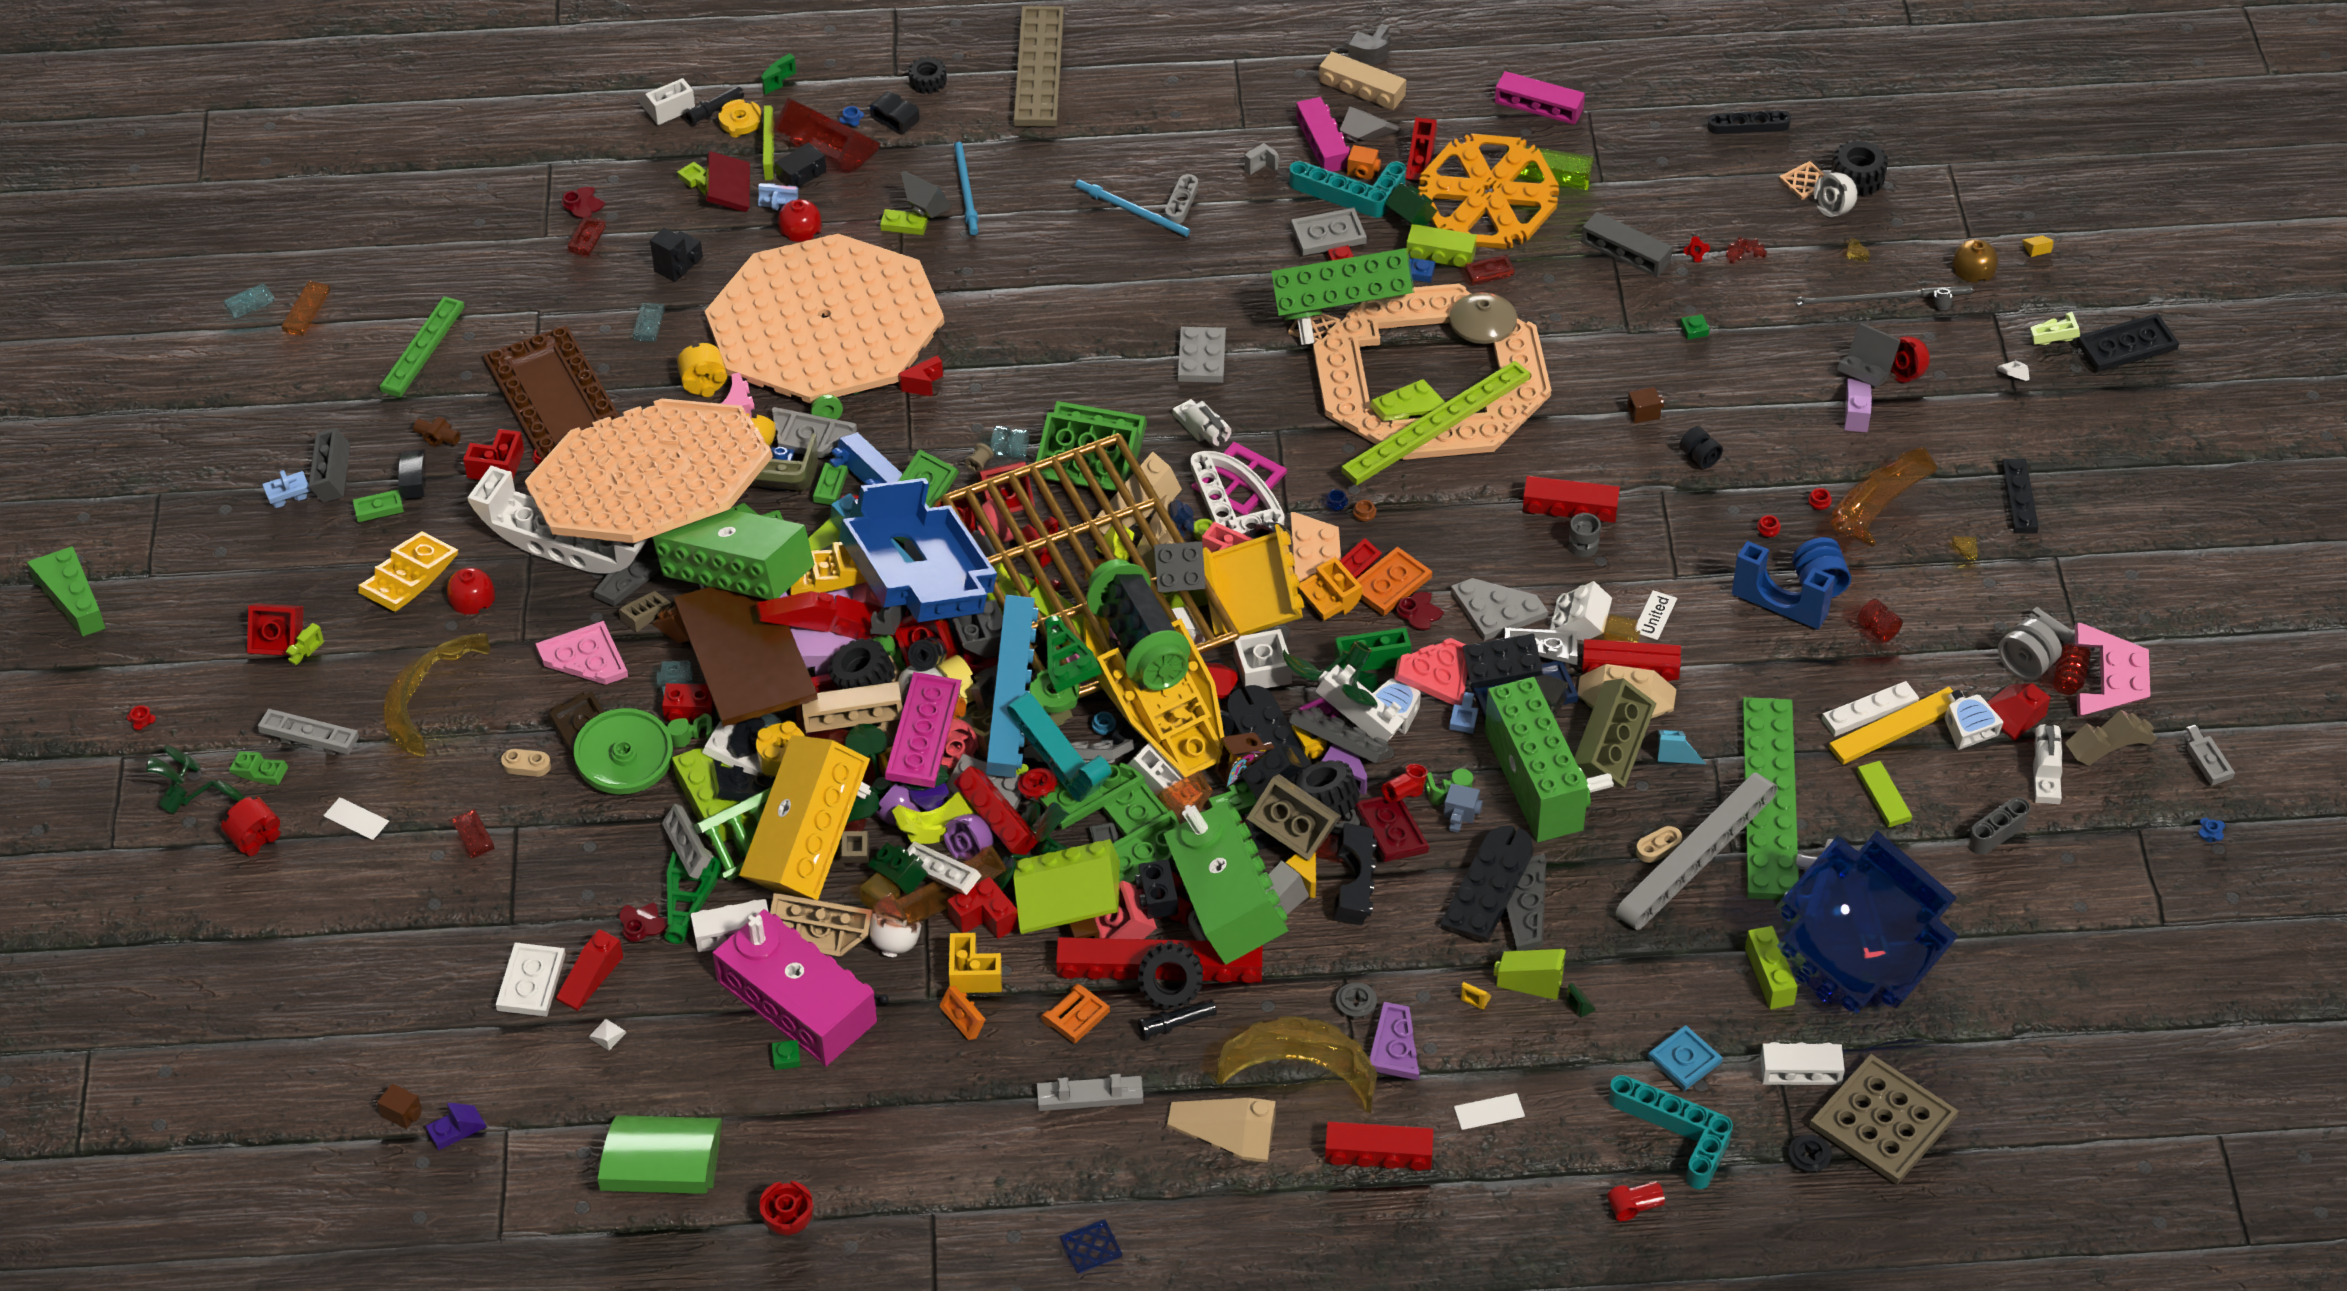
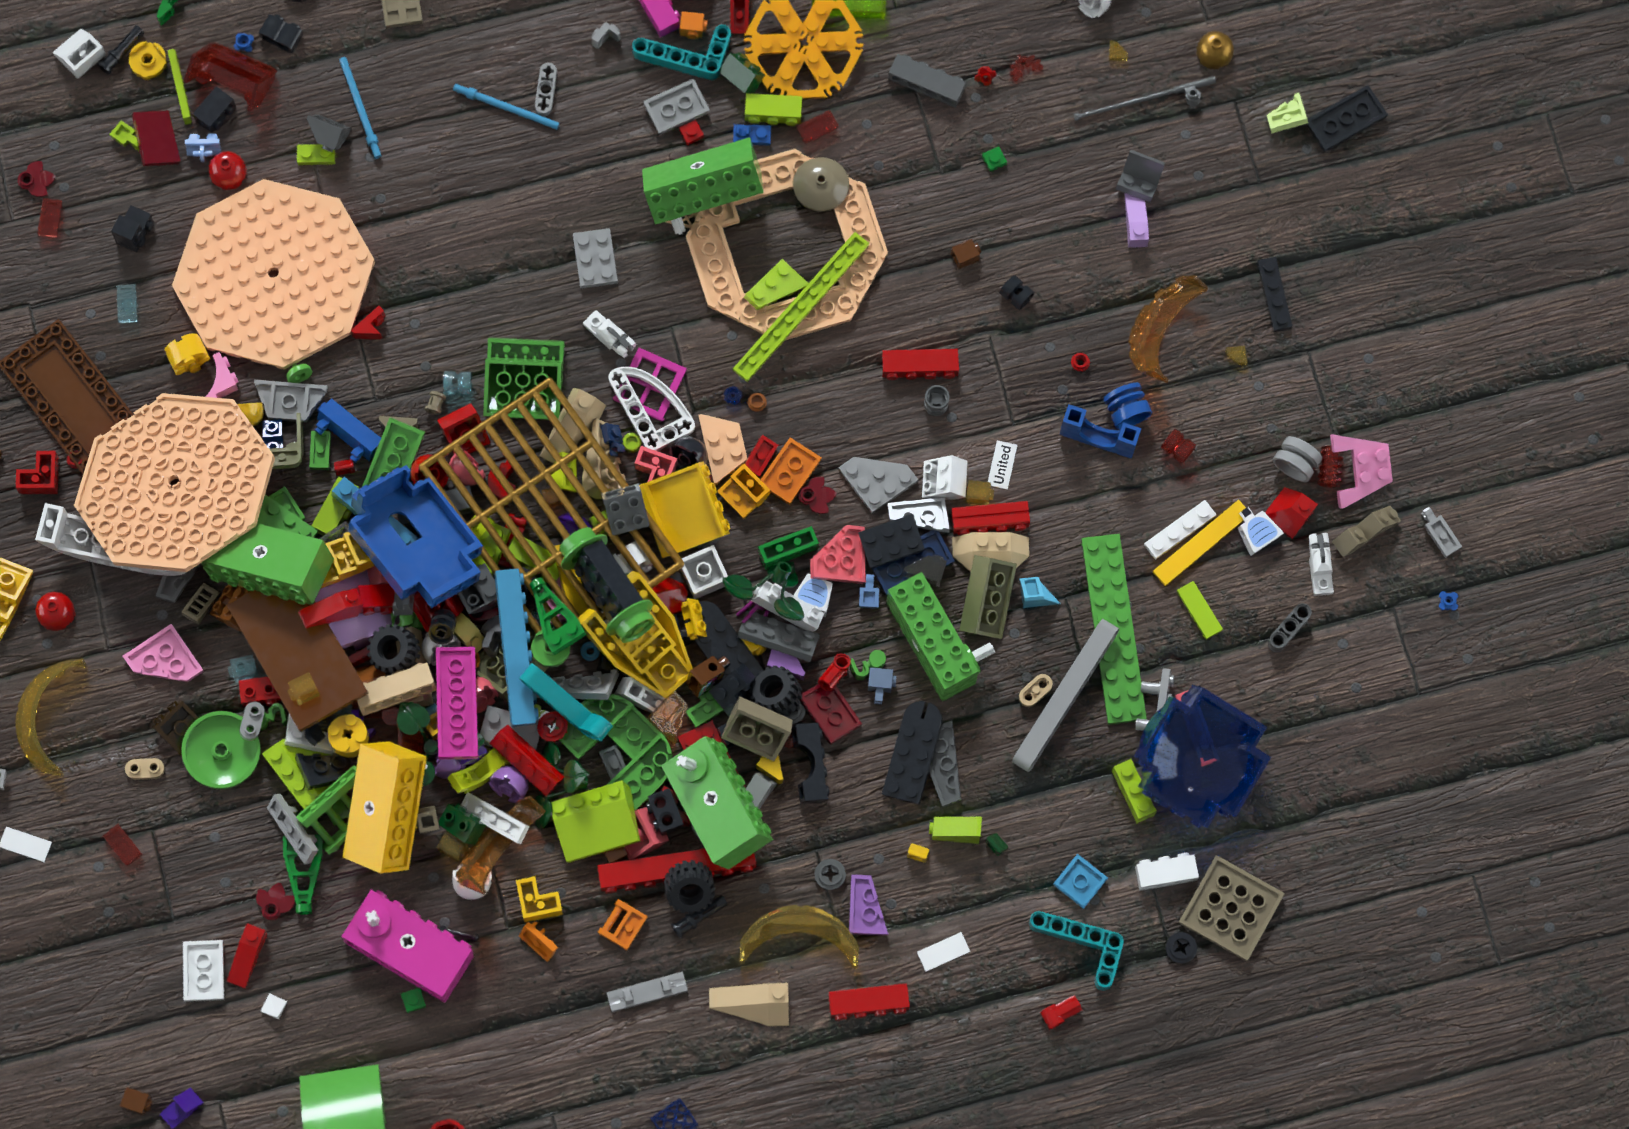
camera: 15 degrees left, 25 degrees up
(673, 720) = (252, 720): none -> light grey plate
(719, 924) = (343, 894): white brick -> none
(738, 677) = (303, 689): none -> clear yellow brick
(828, 925) = (419, 885): tan wedge -> none
(985, 905) = (536, 842): red brick -> none
(1239, 692) = (692, 610): none -> yellow hinge
(1819, 499) = (1117, 321): red plate -> none
(1910, 360) = (1175, 171): red cylinder -> none
(2015, 369) = (1258, 162): white slope -> none
(2038, 245) = (1264, 21): yellow slope -> none
(2061, 631) = (1314, 426): light grey pin -> none

